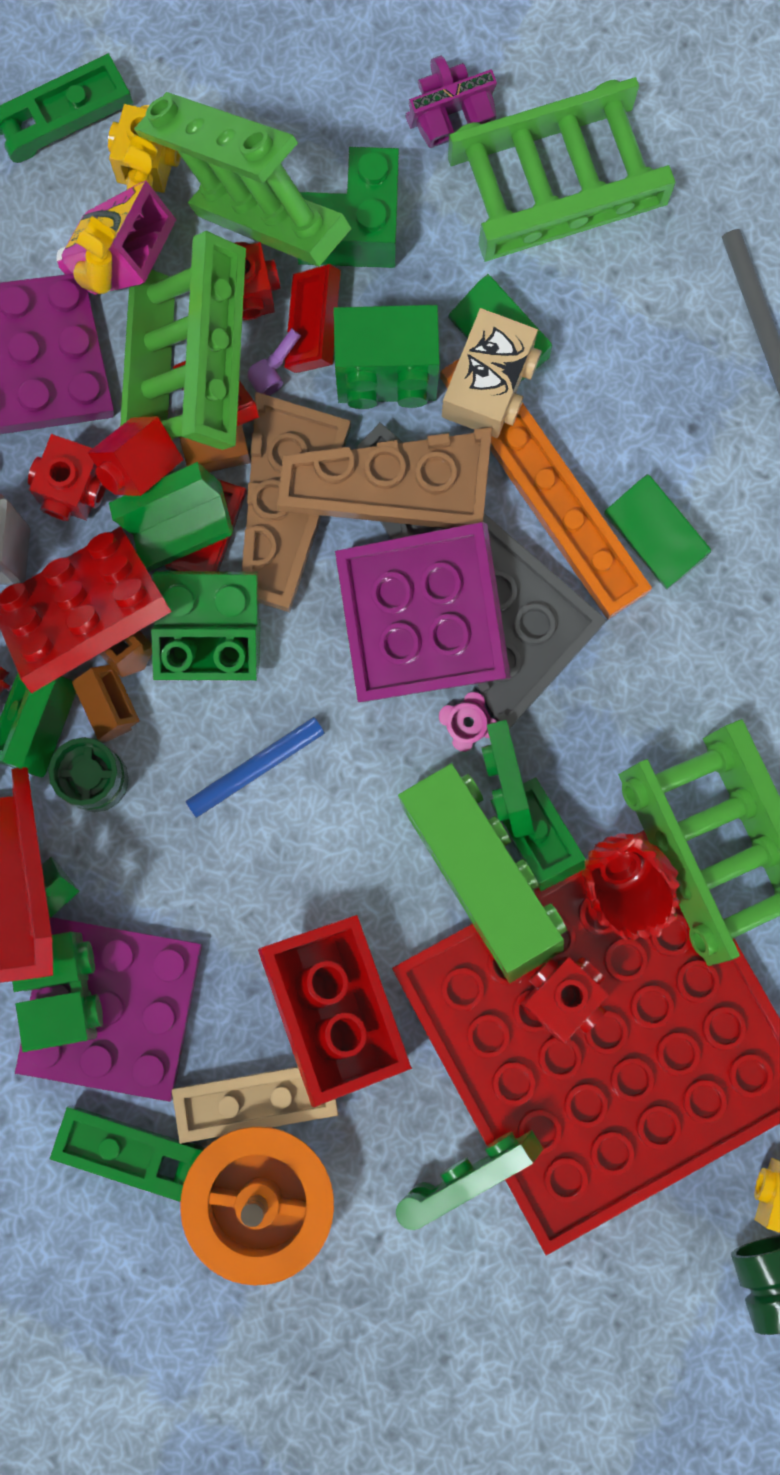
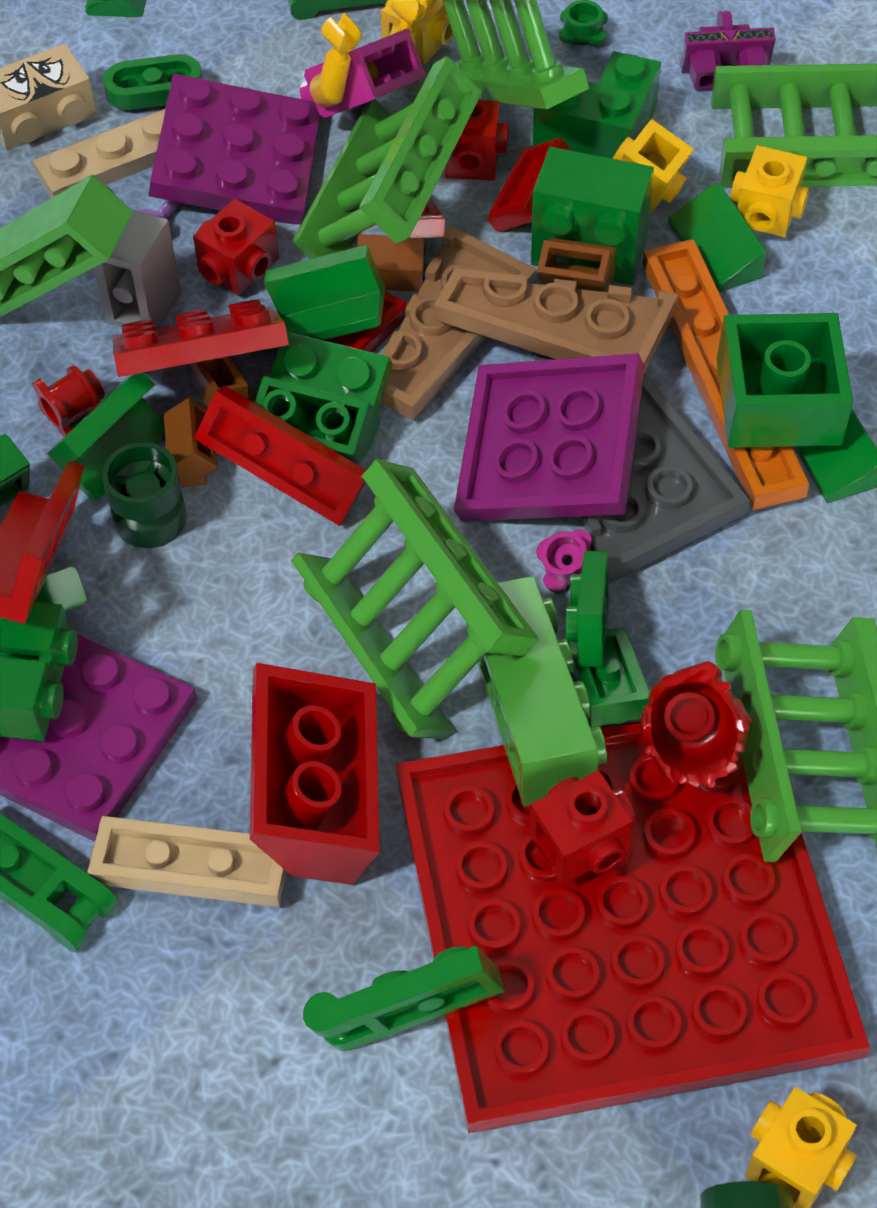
camera: 20 degrees right, 25 degrees down
(135, 456) = (307, 231): red brick -> none
(194, 702) = (281, 455): none -> red plate
(255, 767) = (321, 545): blue bar -> none
(257, 1206) = (146, 947): orange piece -> none
(263, 373) = (466, 216): medium lavender hand -> none
(301, 85) = (583, 23): none -> green plate
(383, 791) = (460, 583): none -> bright green fence
(390, 415) = (587, 277): none -> dark orange piece
(428, 262) = (664, 152): none -> yellow brick
(490, 372) = (692, 251): tan brick -> none
(538, 269) = (771, 190): none -> yellow brick
(611, 503) = (783, 380): none -> green brick

